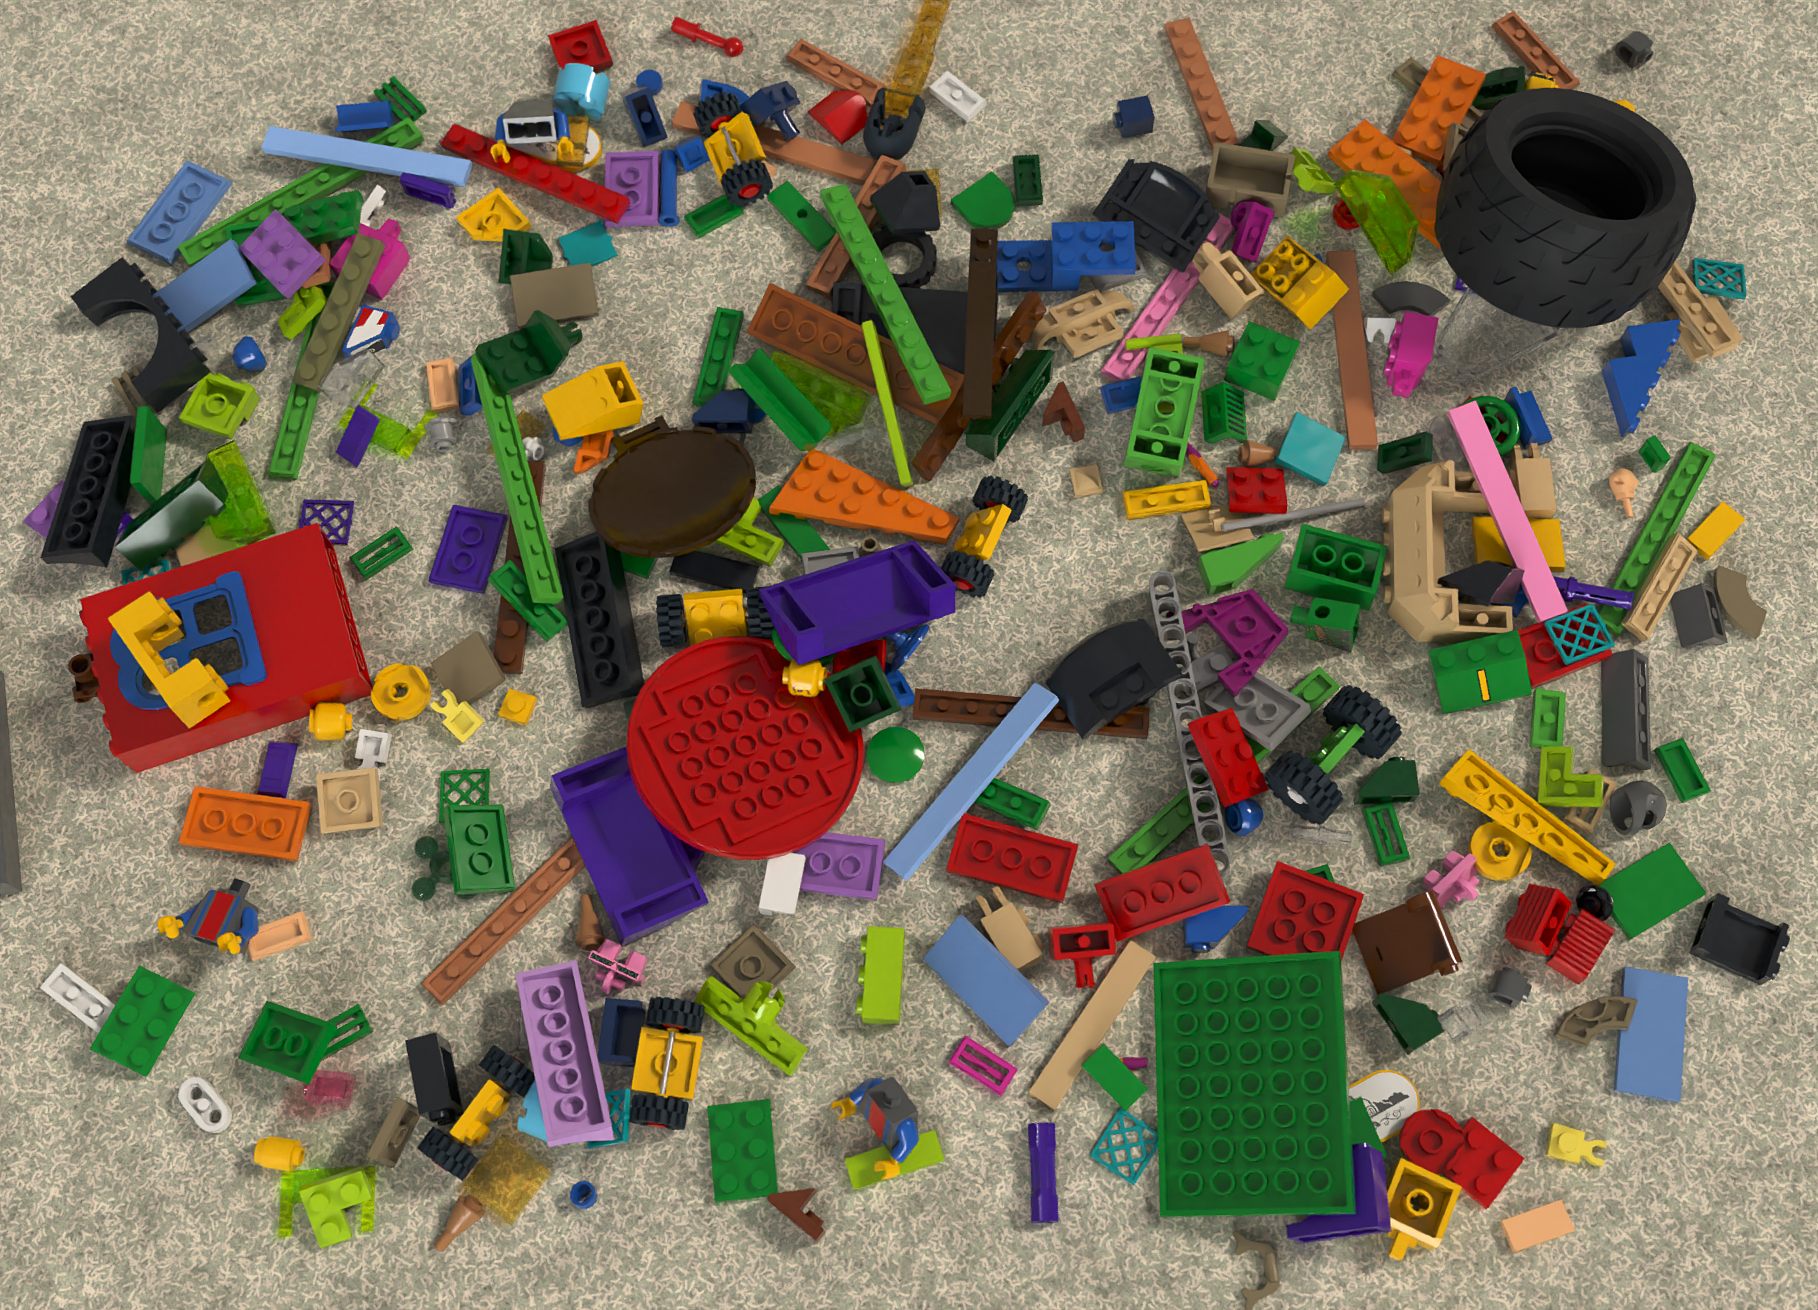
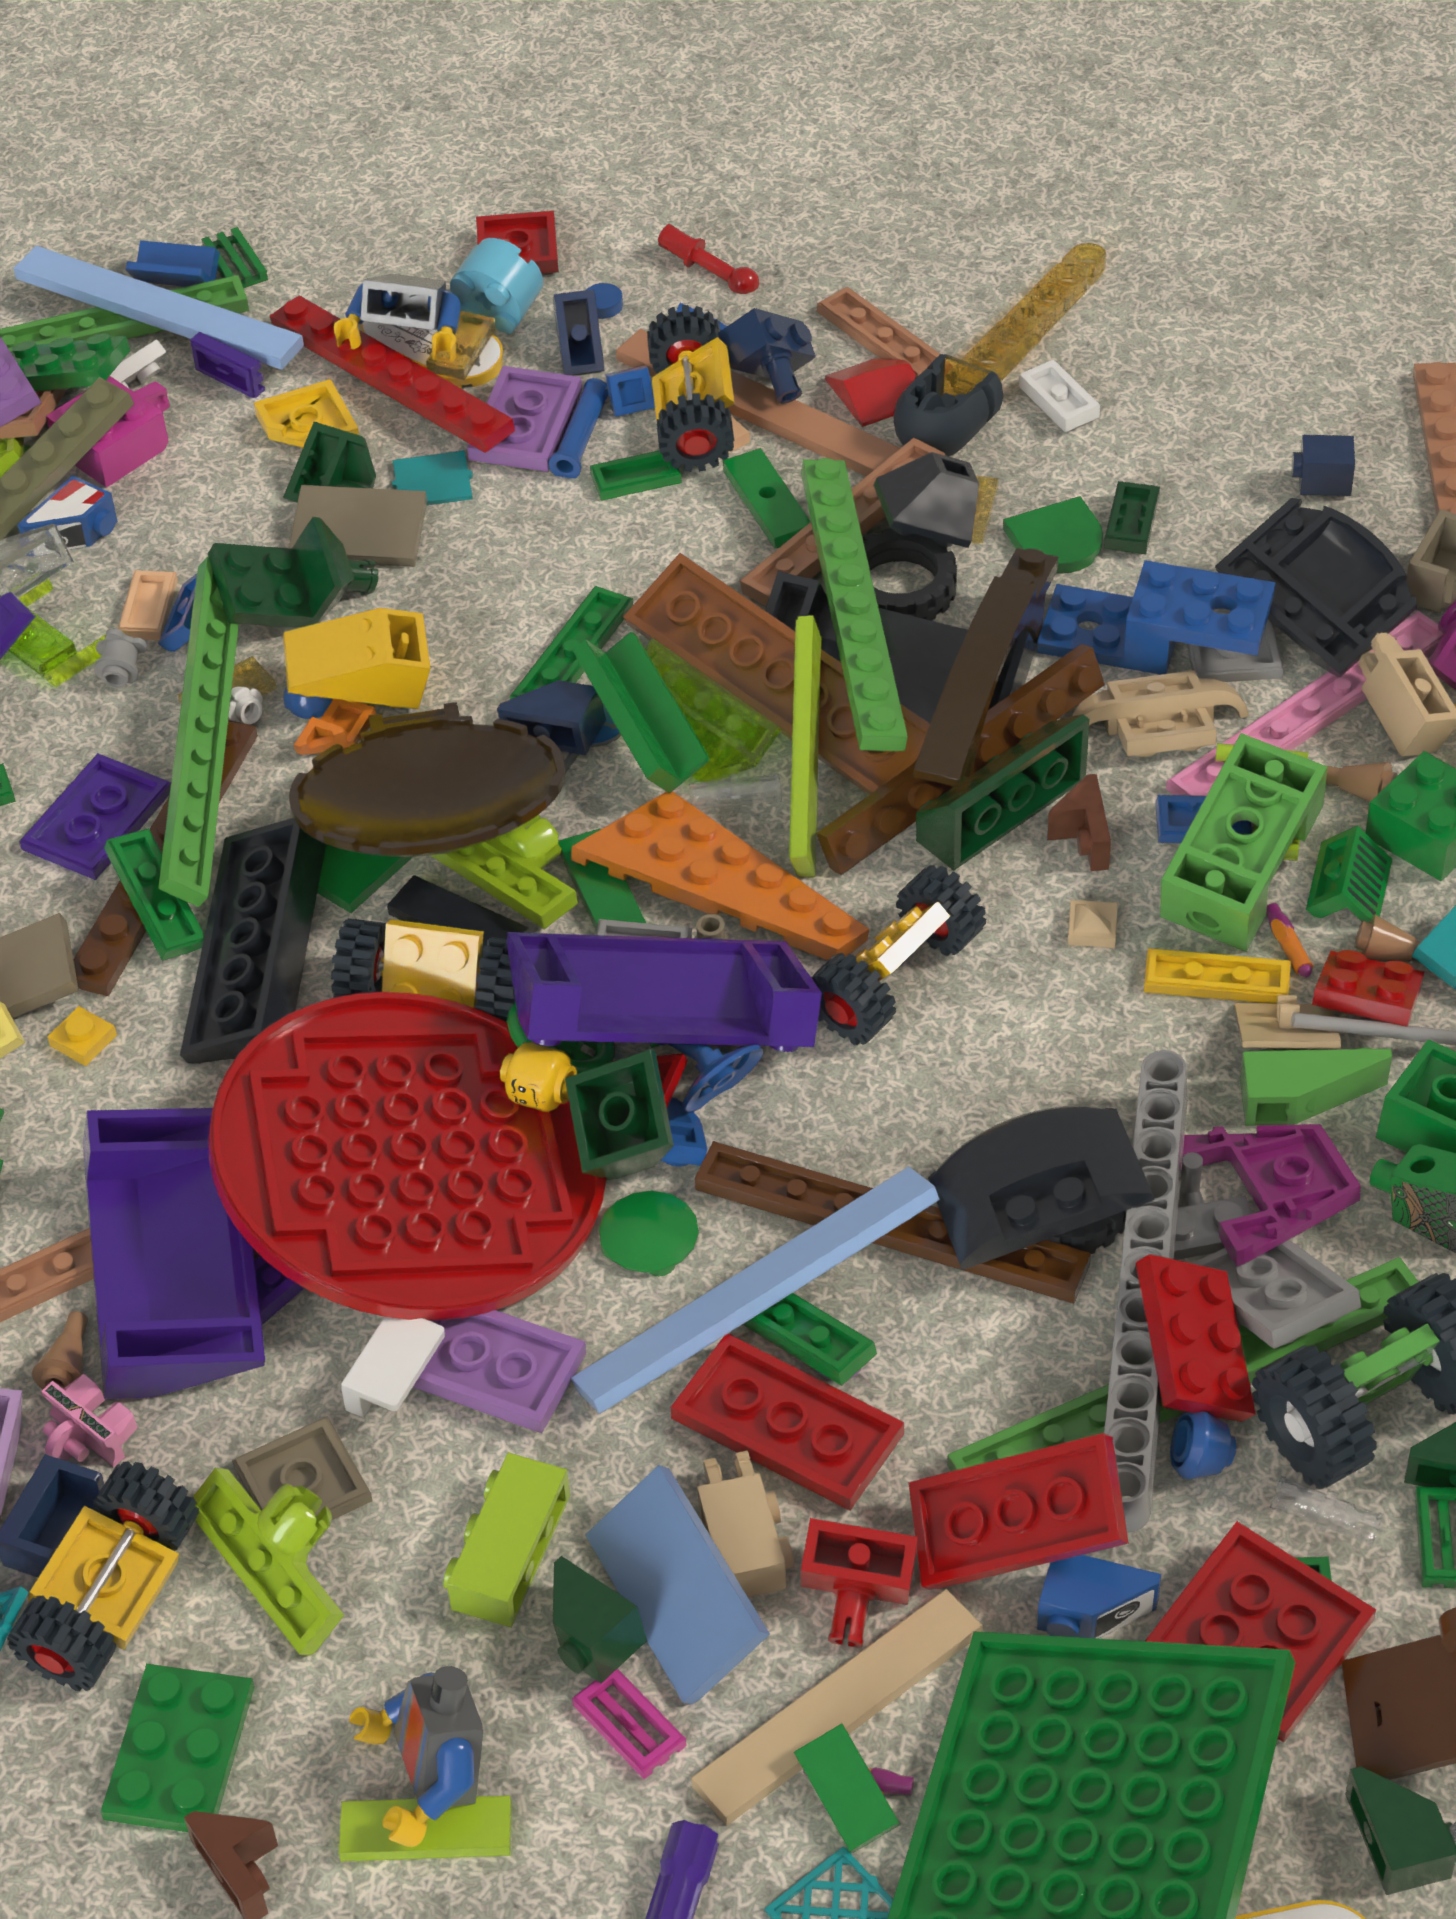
camera: 15 degrees right, 20 degrees down
(947, 1017) = (592, 1622): none -> dark green slope

